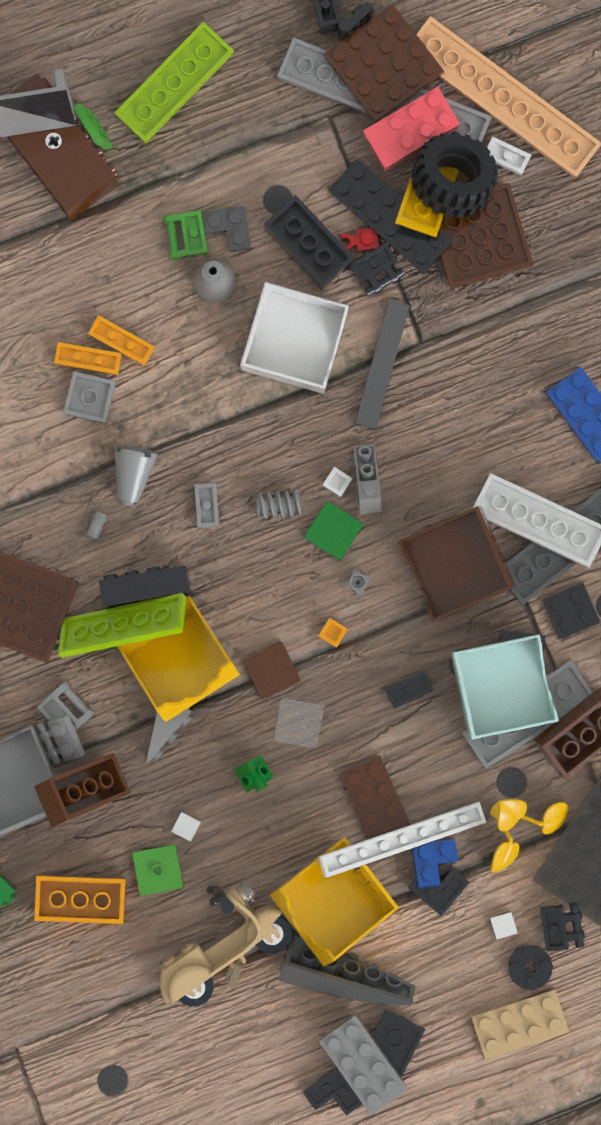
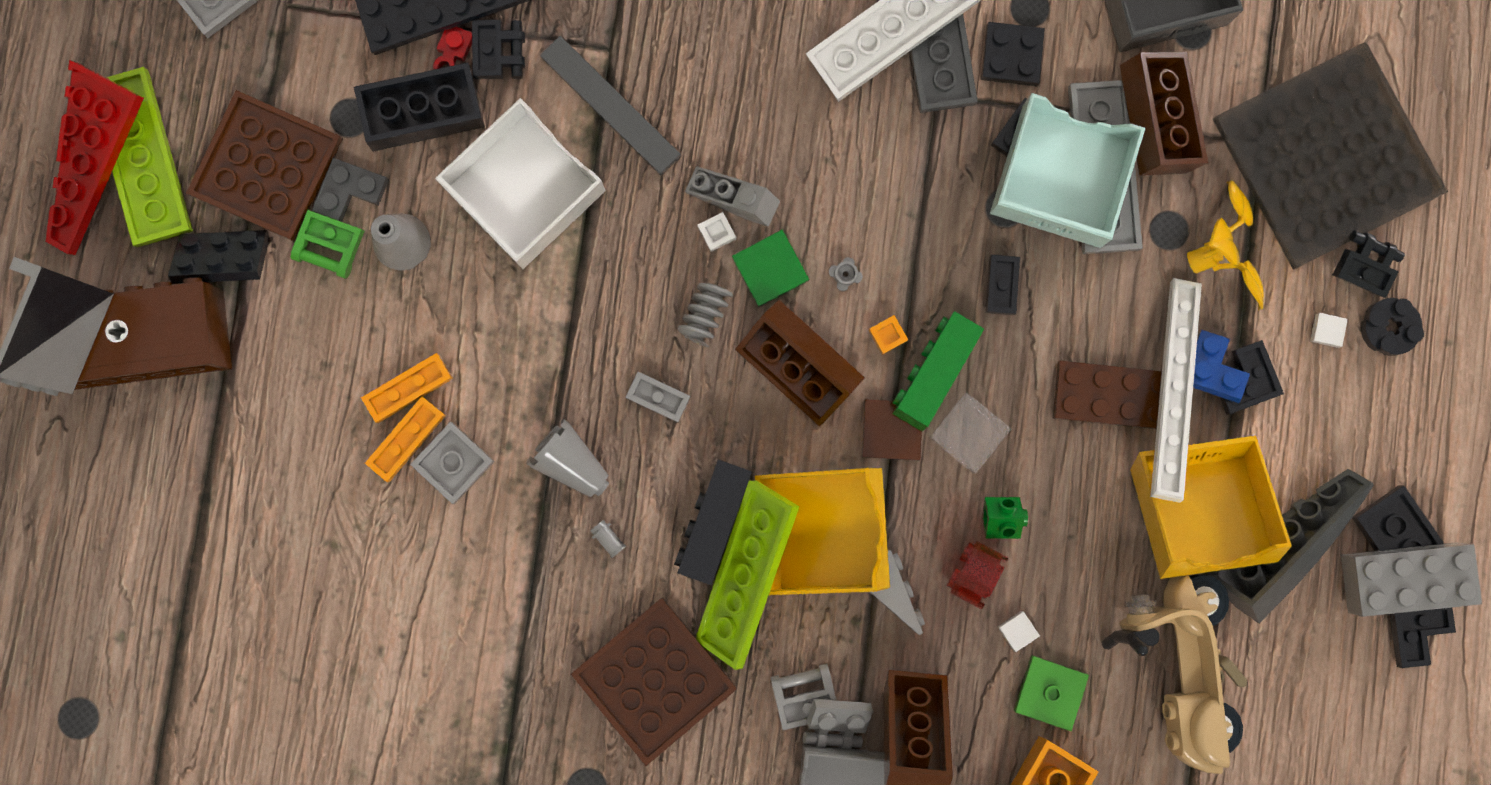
camera: 70 degrees left, 0 degrees up
(93, 126) = (129, 278): bright green plate -> none
(138, 172) = (219, 256): none -> black plate
(162, 48) = (88, 148): none -> red wing
(206, 776) = (977, 574): none -> clear red brick
(214, 165) = (264, 165): none -> reddish brown plate
(281, 584) = (799, 363): none -> reddish brown slope
(326, 678) = (938, 370): none -> green brick
(457, 563) = (893, 144): reddish brown piece -> none
(520, 1024) = (1450, 374): tan plate -> none

